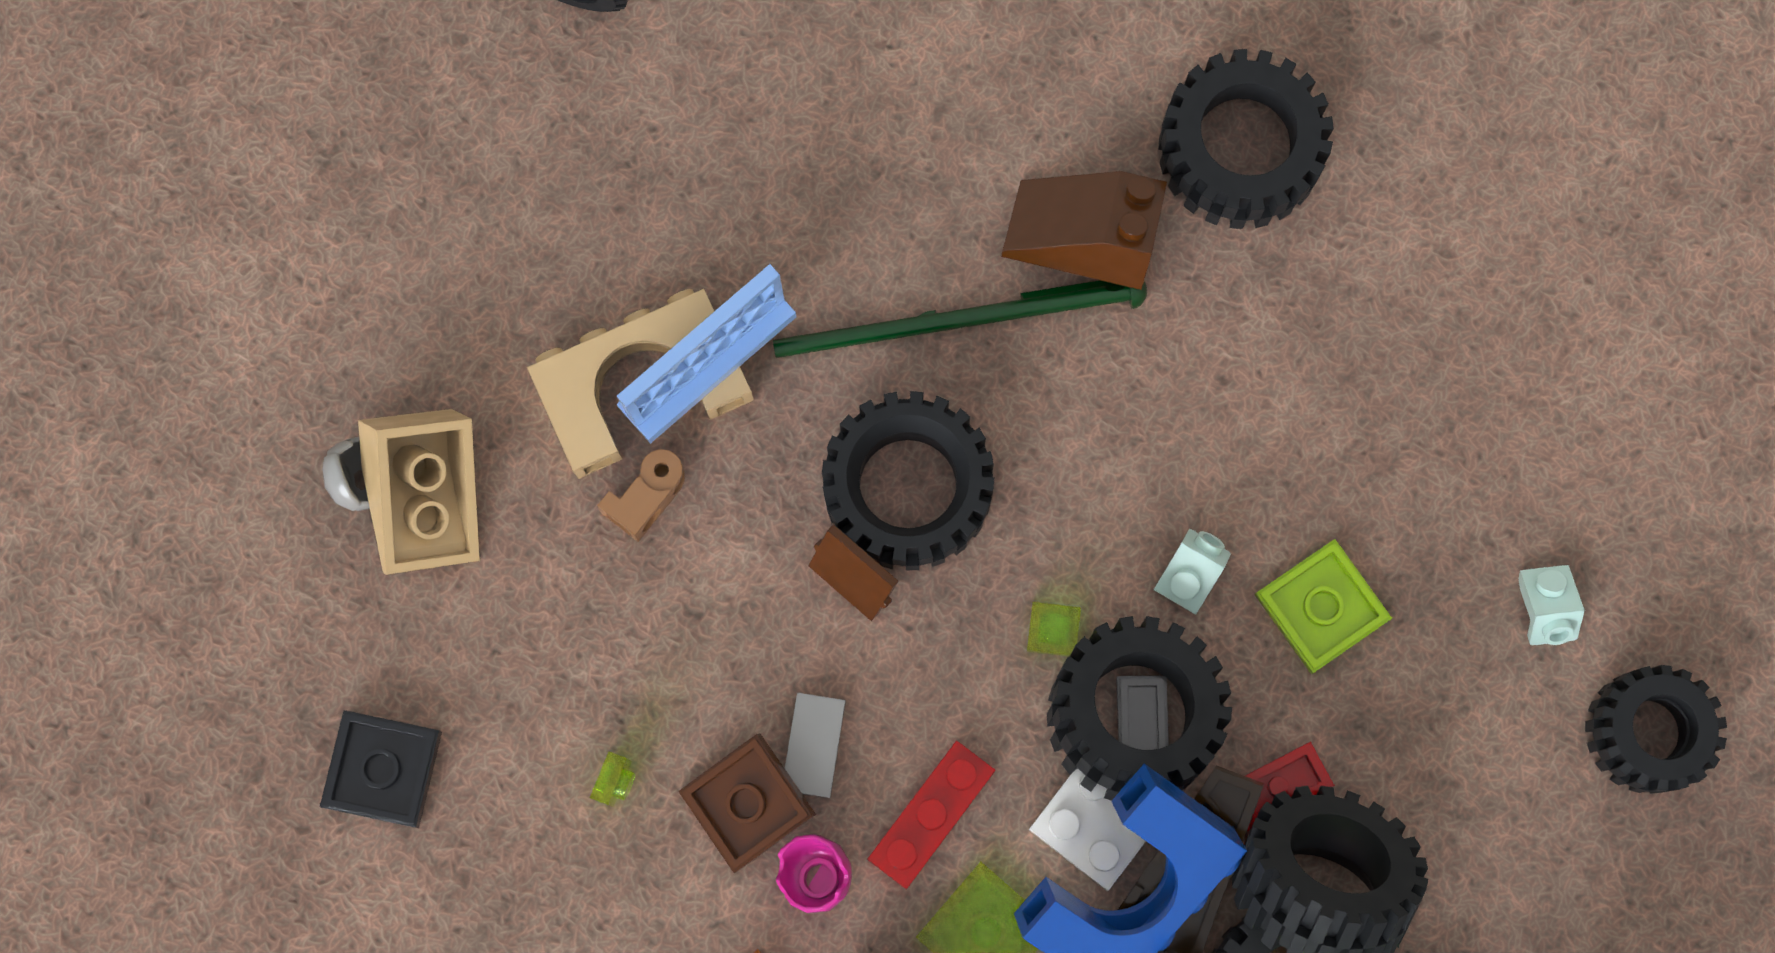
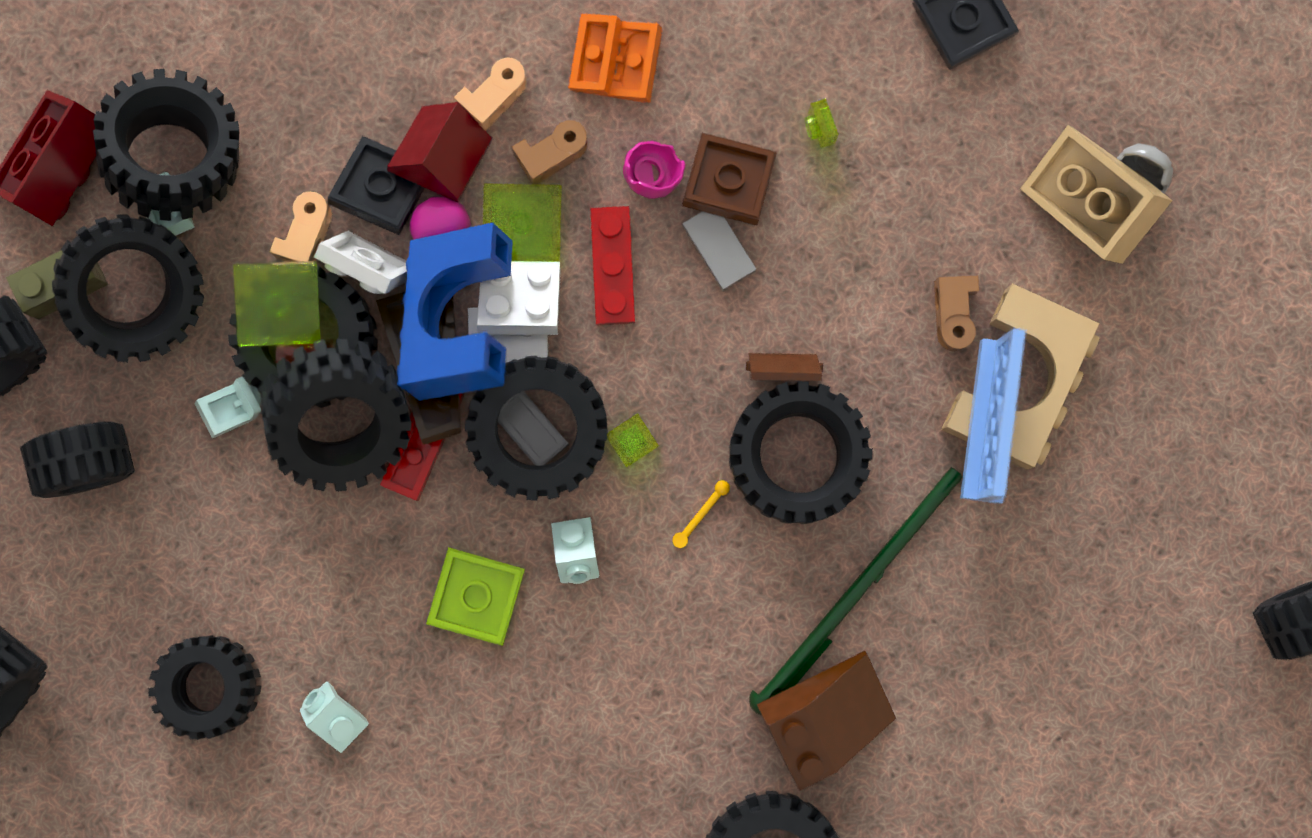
camera: 140 degrees right, 5 degrees up
(1050, 843) = (521, 302): none -> white plate
(1084, 500) = (681, 539): none -> yellow hinge

